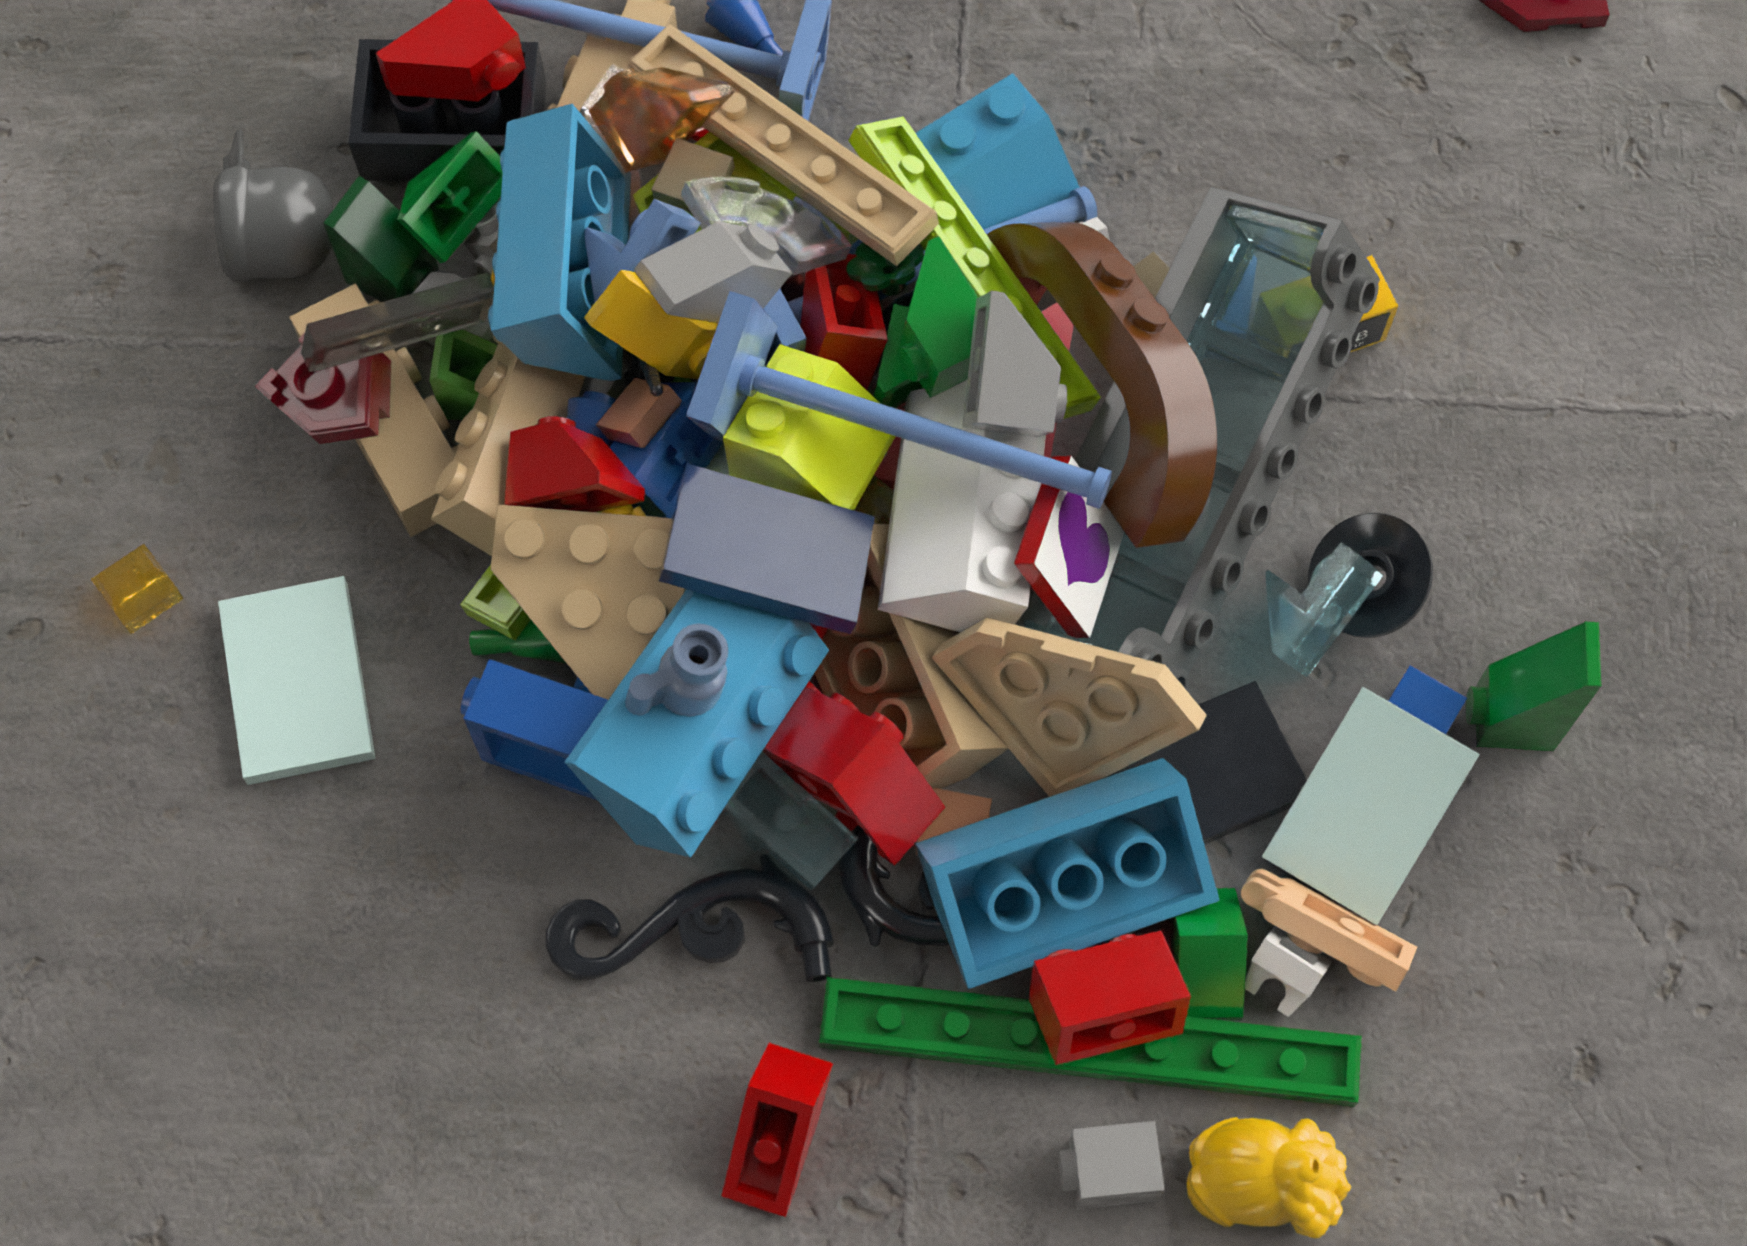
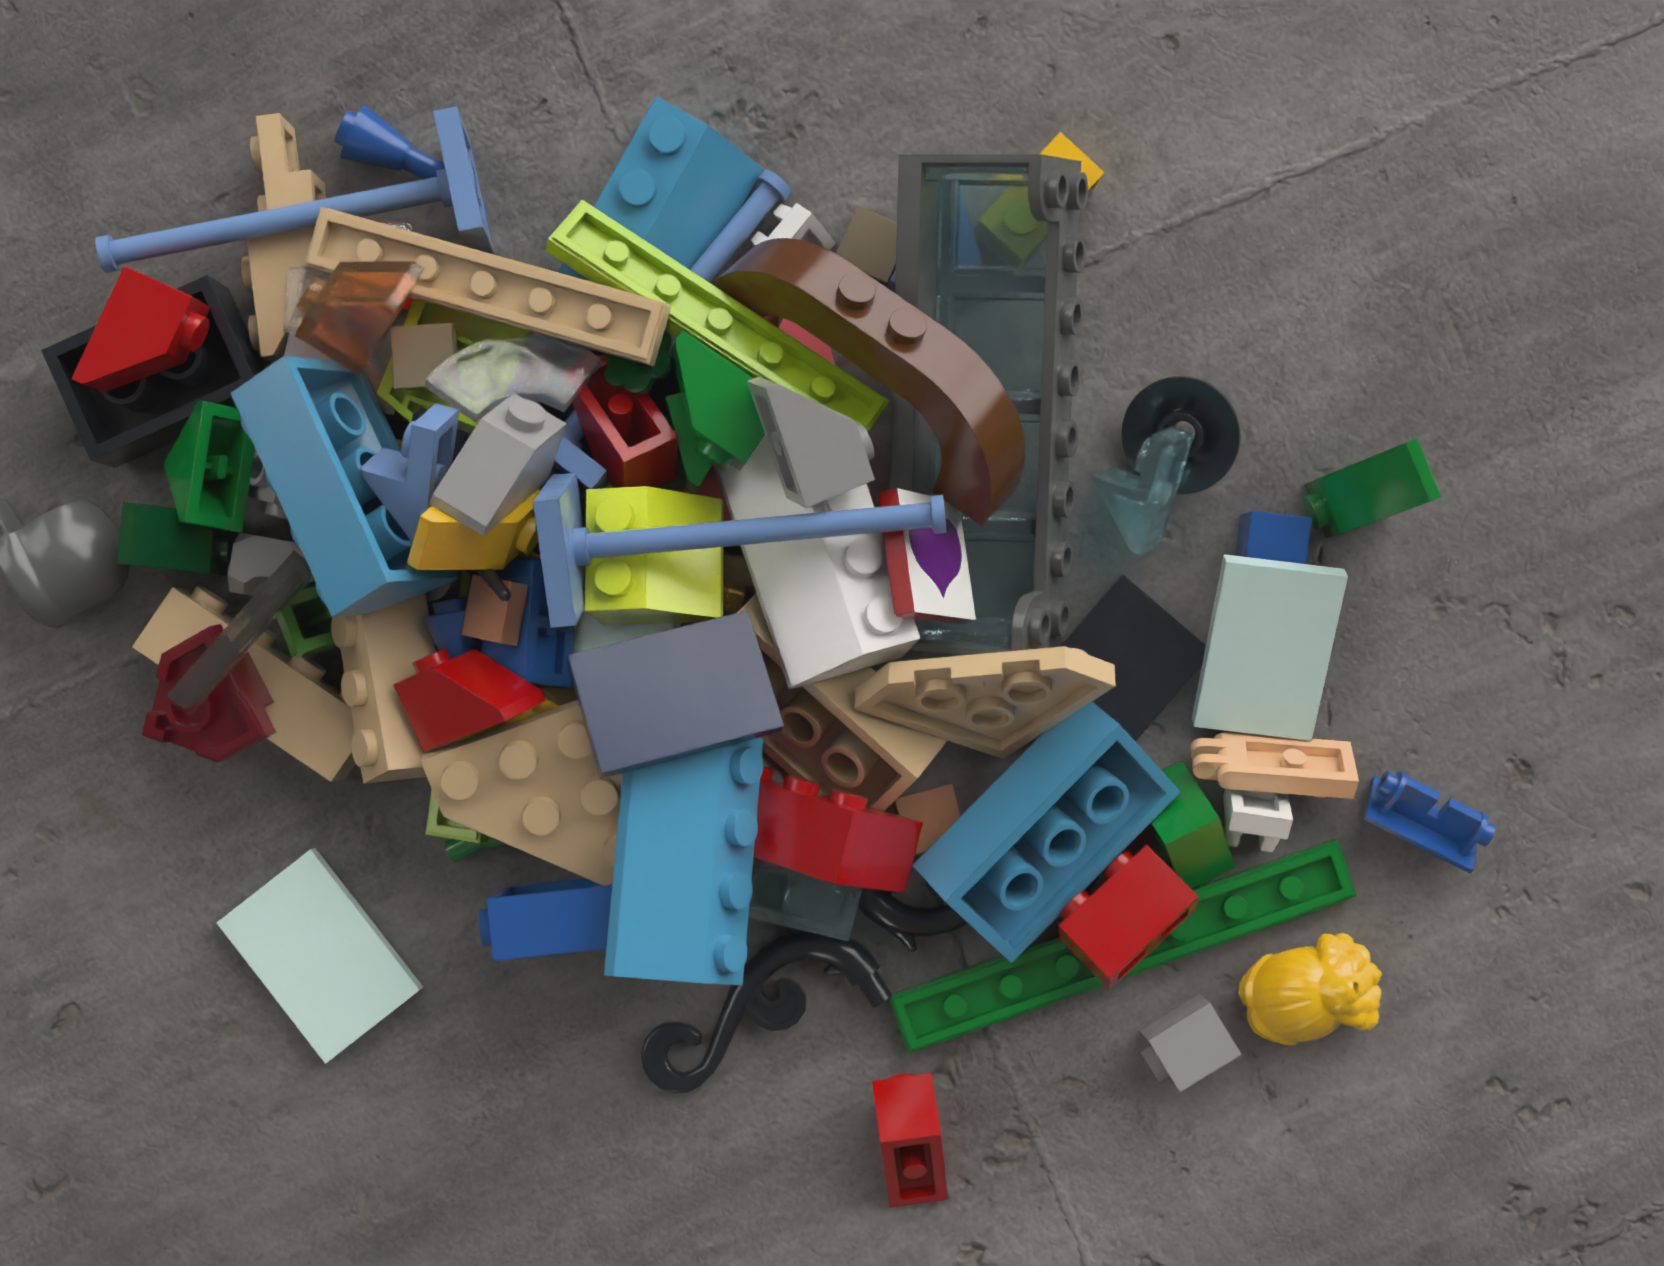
camera: 25 degrees left, 20 degrees up
(137, 588) = (139, 941): clear yellow tile -> none
(687, 676) = (669, 855): sand blue piece -> none
(1483, 1079) = (1408, 811): none -> blue hinge

